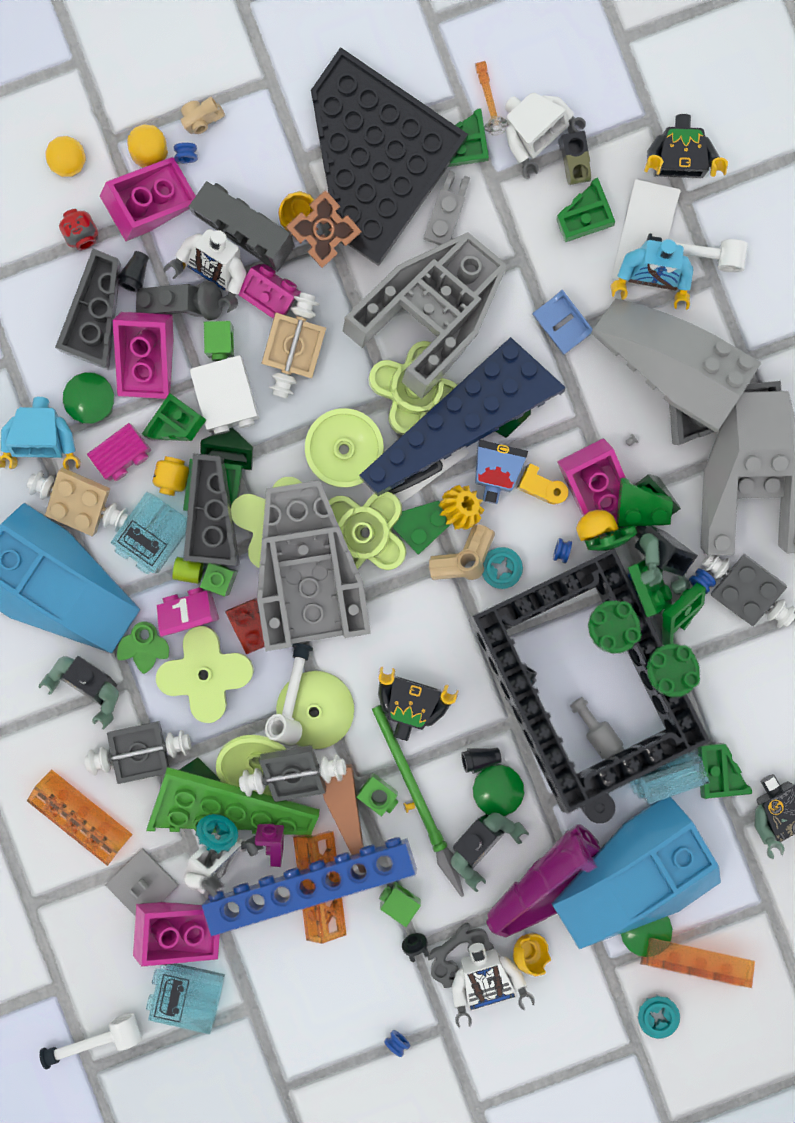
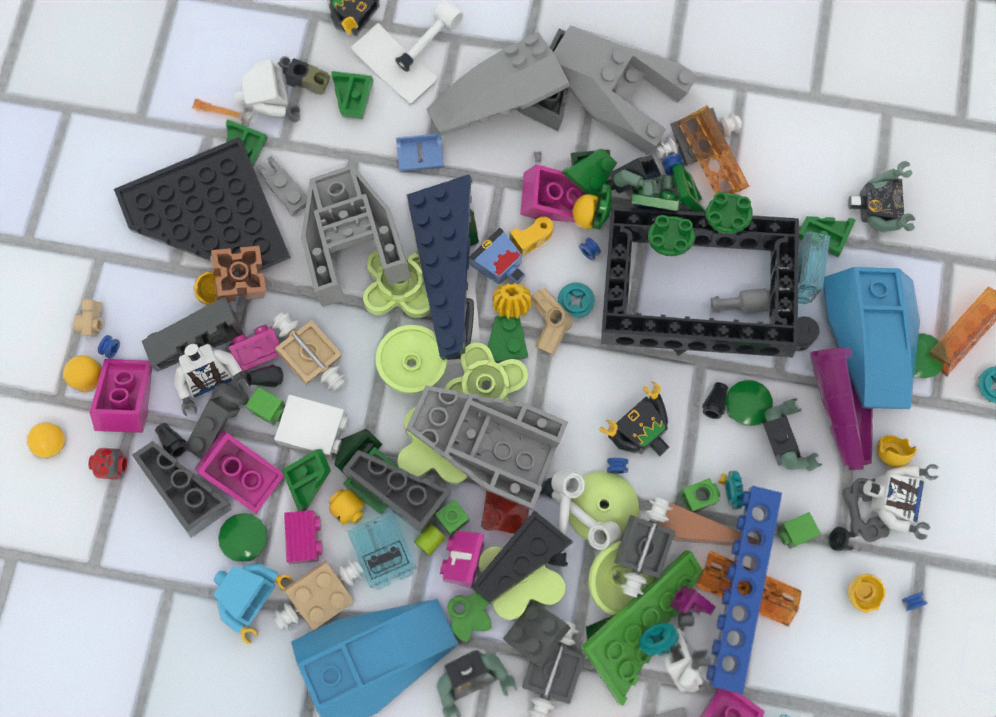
camera: 60 degrees left, 15 degrees down
(159, 719) = (536, 633): none -> dark grey plate
(224, 667) = (523, 554): none -> black wing
(247, 322) = (266, 376): none -> black cone
(302, 673) = (574, 490): none -> white piece
(361, 702) = (617, 465): none -> blue bush
(377, 995) = (866, 592): none -> yellow hair
(401, 824) = (734, 489): none -> teal gear
(440, 847) = (778, 474): bright green piece -> none
(657, 266) = (422, 65): medium azure torso -> none
(745, 619) = (720, 148): none -> clear orange fence

